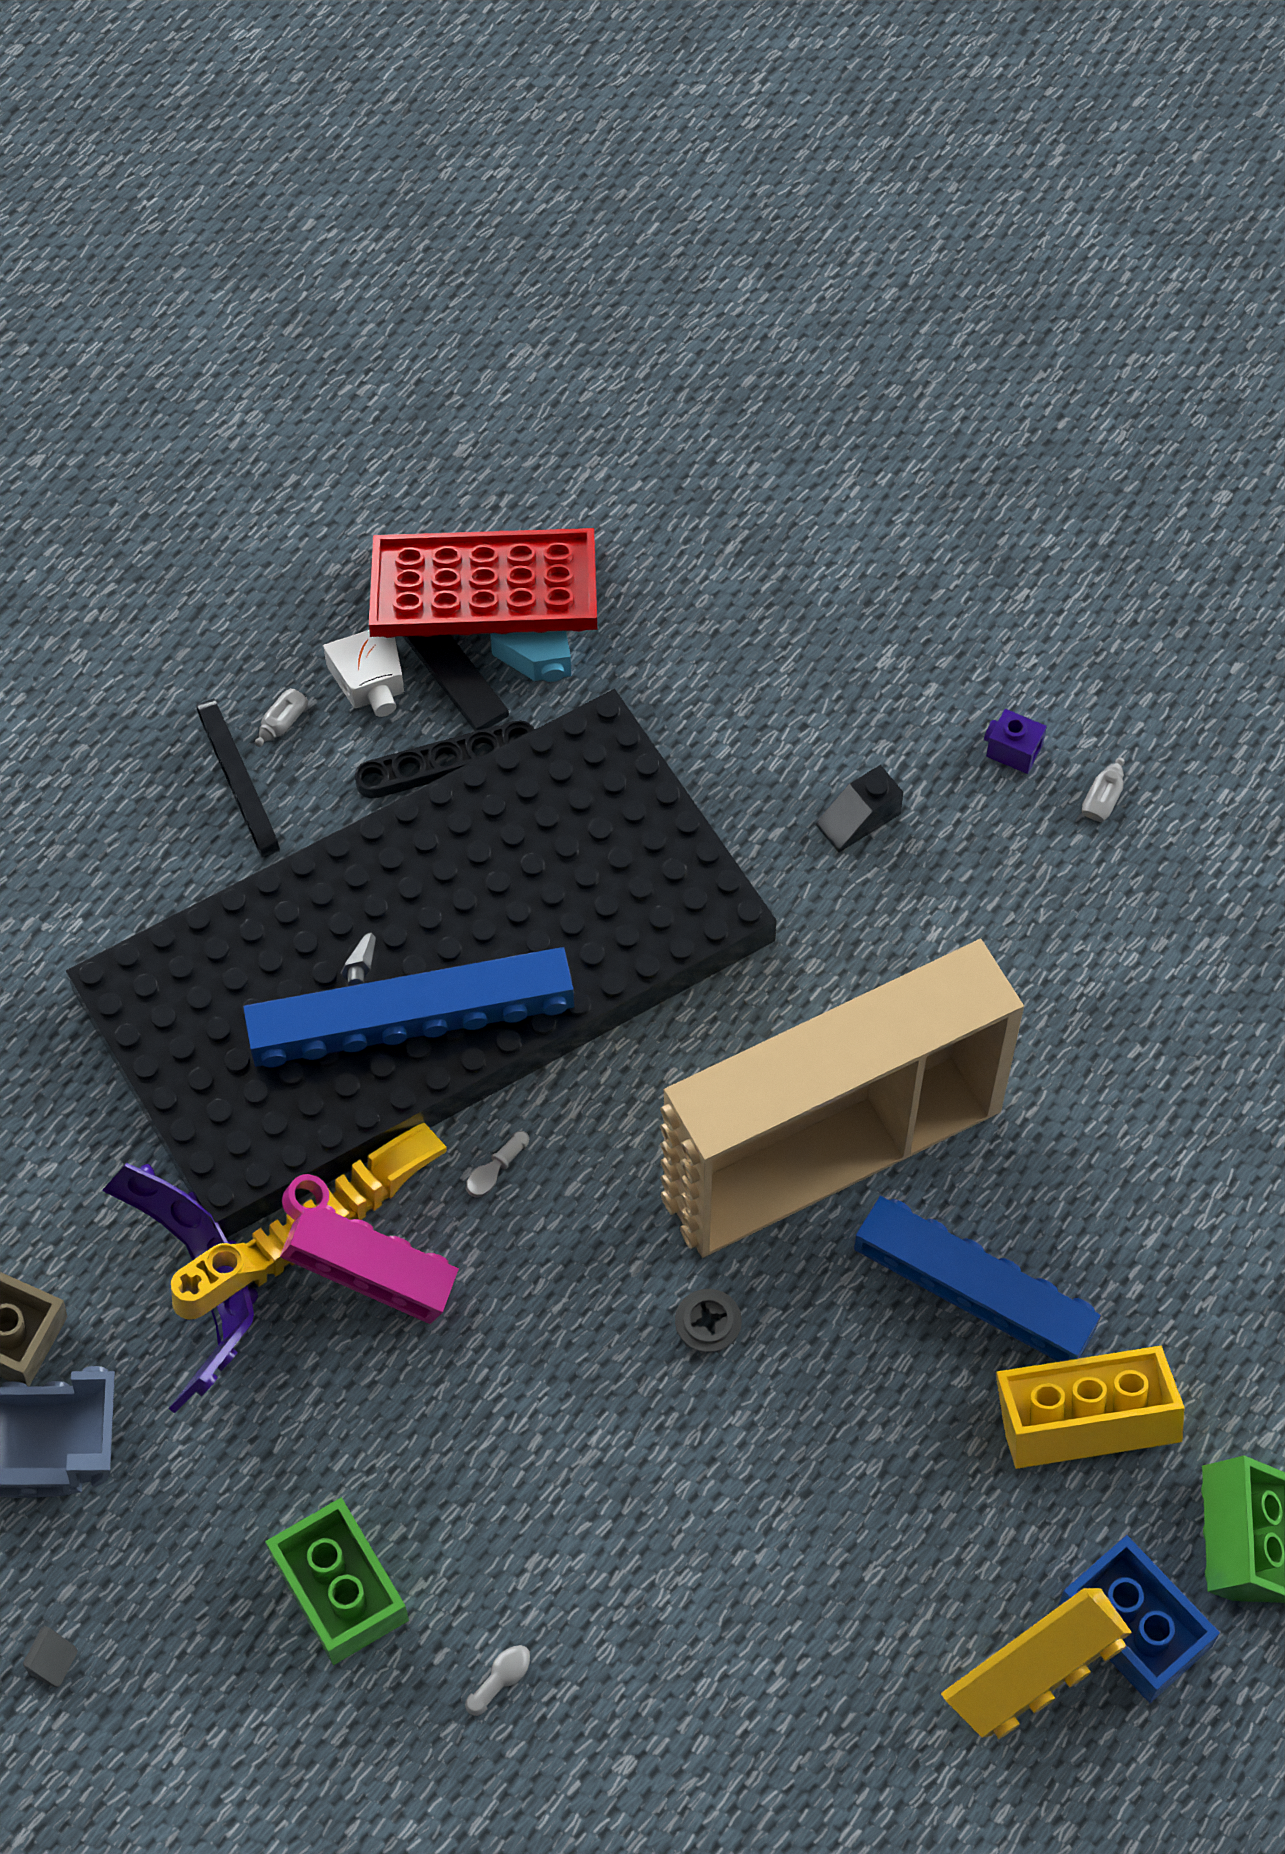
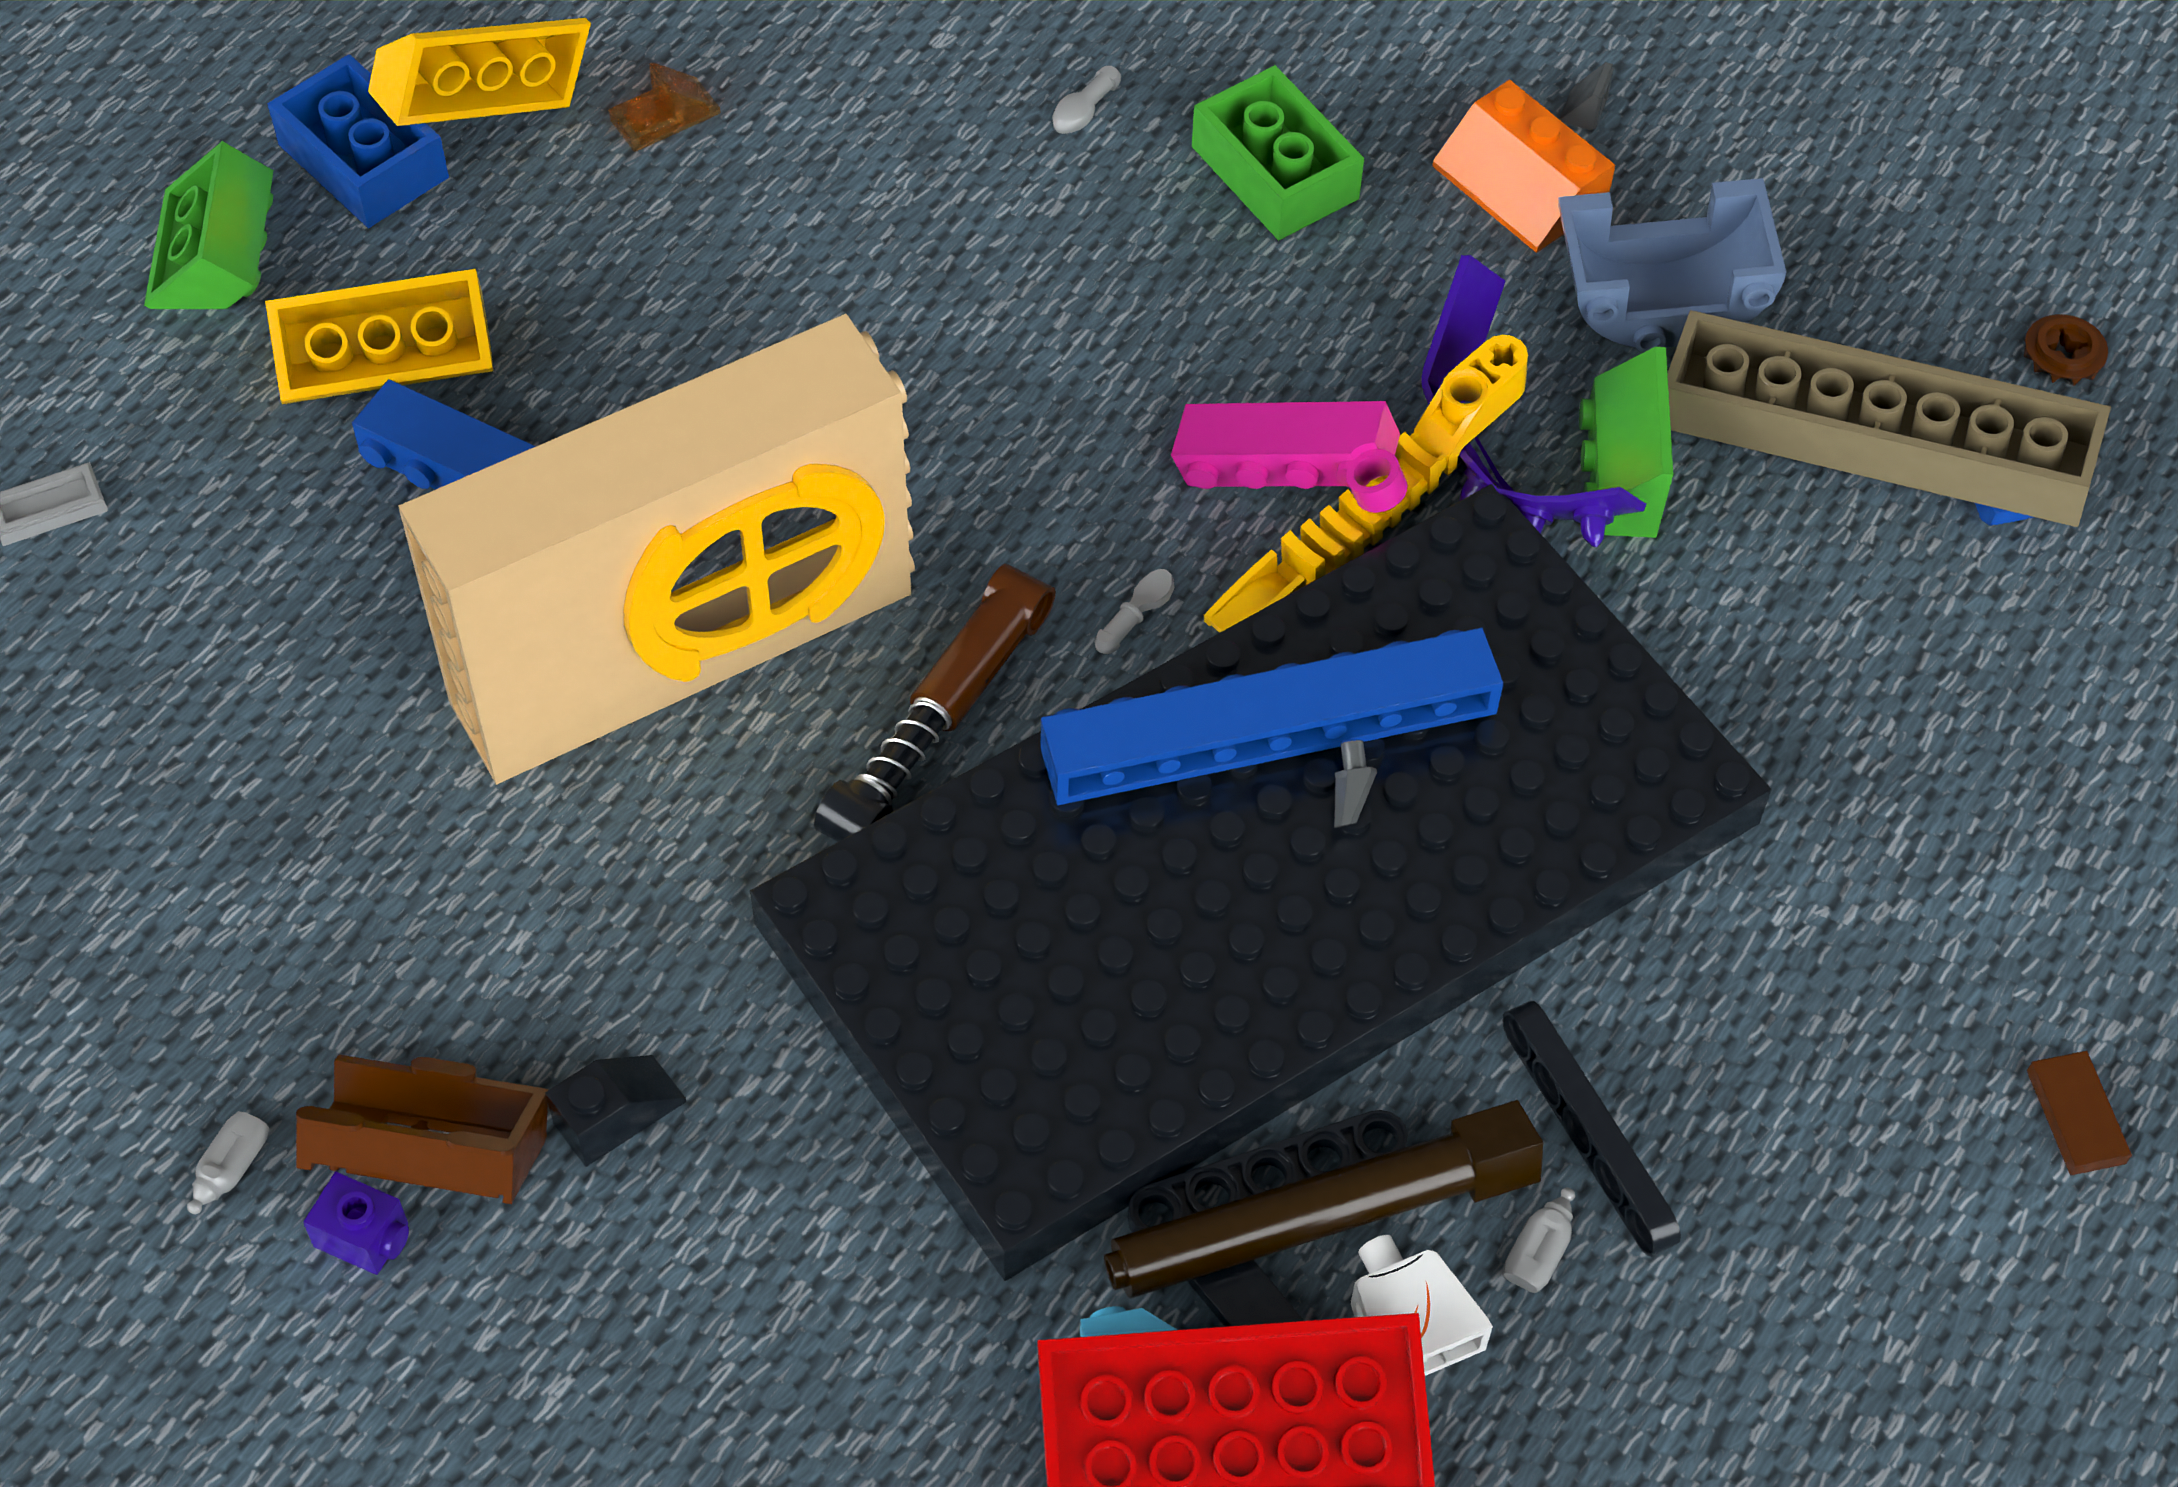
camera: 175 degrees right, 5 degrees down
(99, 1269) = (1630, 439): none -> bright green slope
(124, 1571) = (1519, 161): none -> slope
(314, 753) = (1481, 1156): none -> dark brown brick
(591, 1154) = (1008, 611): none -> piece
(873, 1675) = (670, 107): none -> clear orange slope
(1028, 791) = (490, 1124): none -> reddish brown piece

